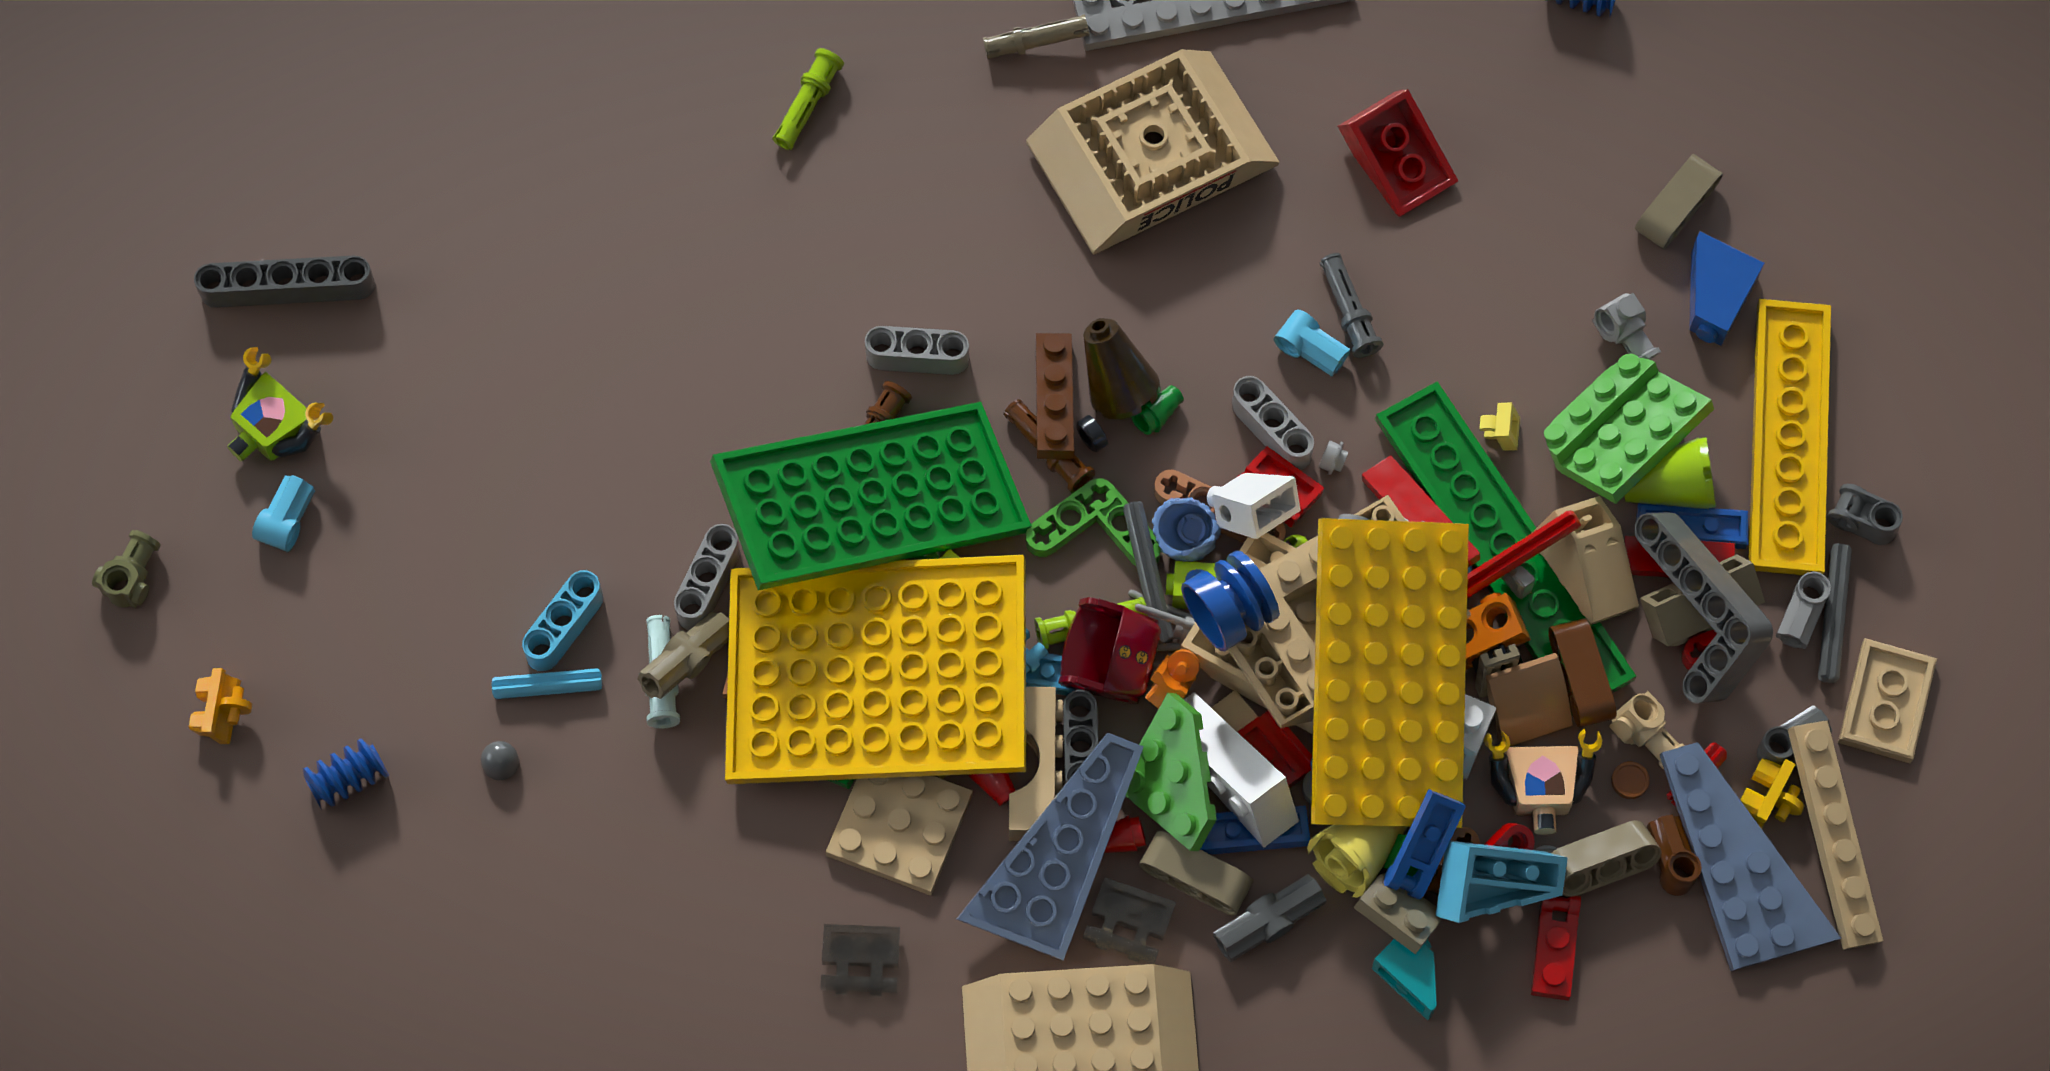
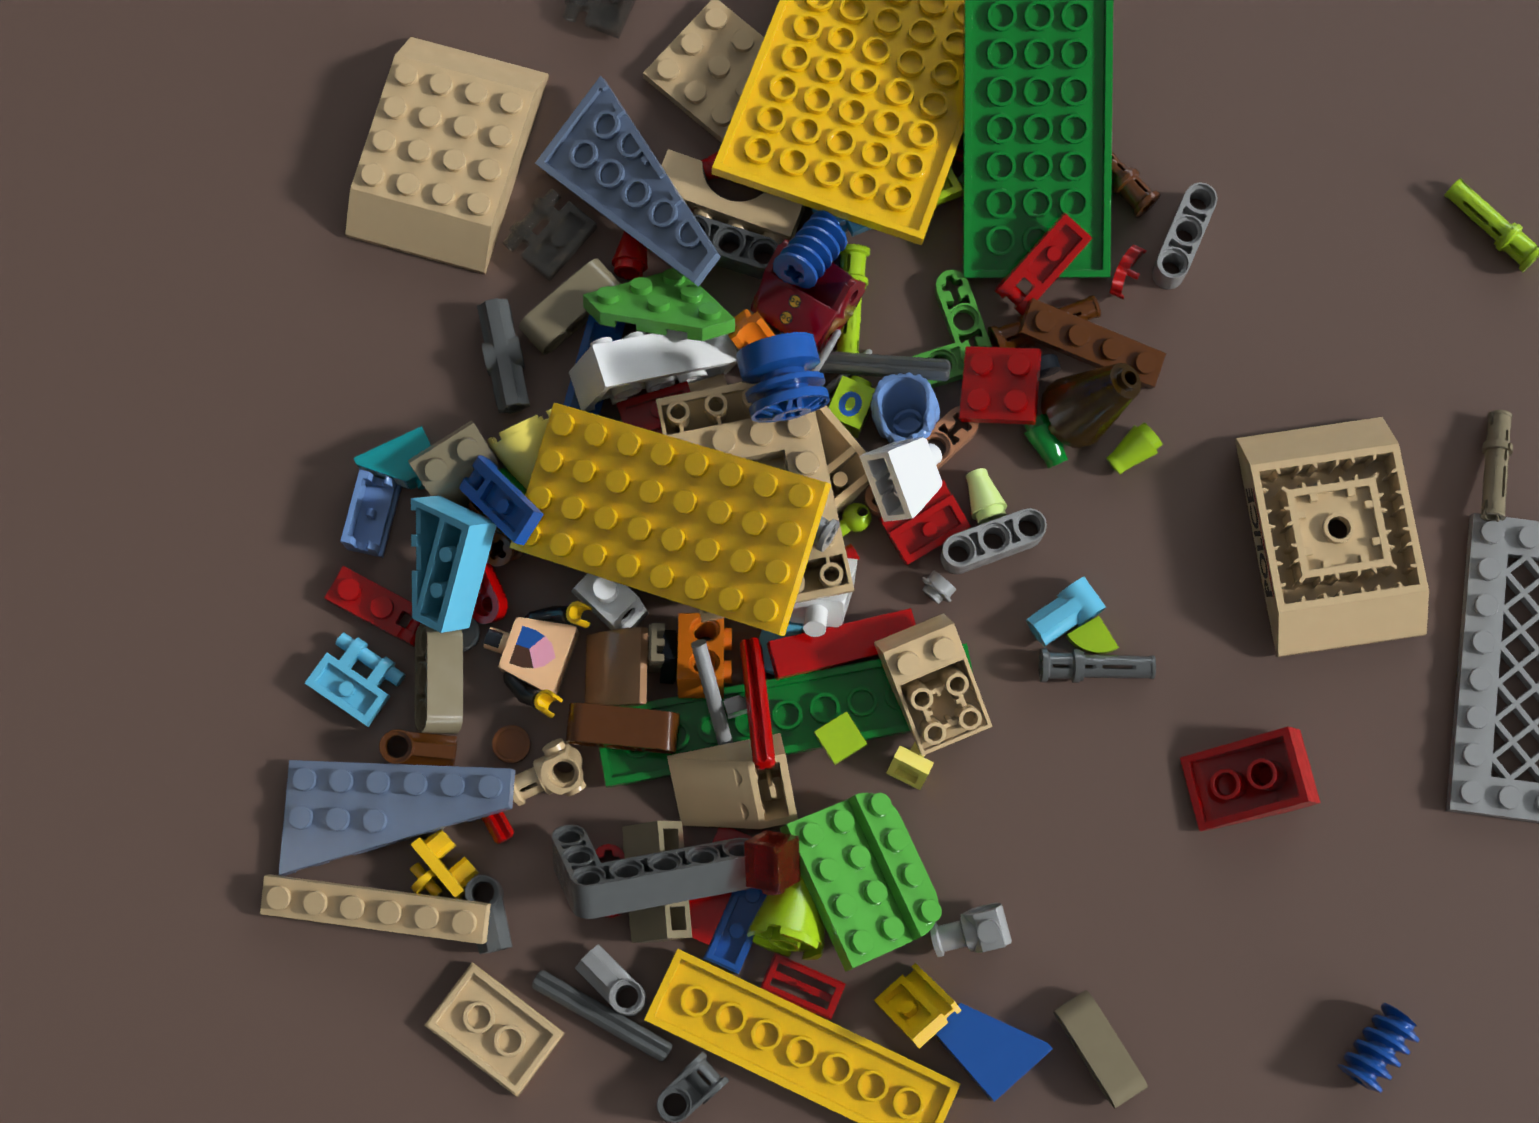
camera: 110 degrees right, 10 degrees up
(961, 394) = (1124, 269): none -> red piece
(997, 455) = (1044, 262): none -> red plate
(1069, 653) = (811, 250): none -> blue piece
(1128, 456) = (1000, 385): none -> red plate
(1140, 332) = (1134, 448): none -> lime cone
(1234, 443) = (984, 497): none -> yellowish green cone
(1326, 314) = (1093, 637): none -> lime tile
(1426, 425) = (933, 683): none -> tan slope
(1474, 985) = (370, 514): none -> medium blue hinge
(1508, 488) = (840, 738): none -> lime tile
(1522, 598) = (711, 692): none -> light grey bar
(1645, 942) = (349, 689): none -> medium azure plate
(1650, 494) = (772, 862): none -> clear red brick
(1712, 350) = (917, 1005): none -> yellow plate
(1732, 483) = (832, 999): none -> red tile

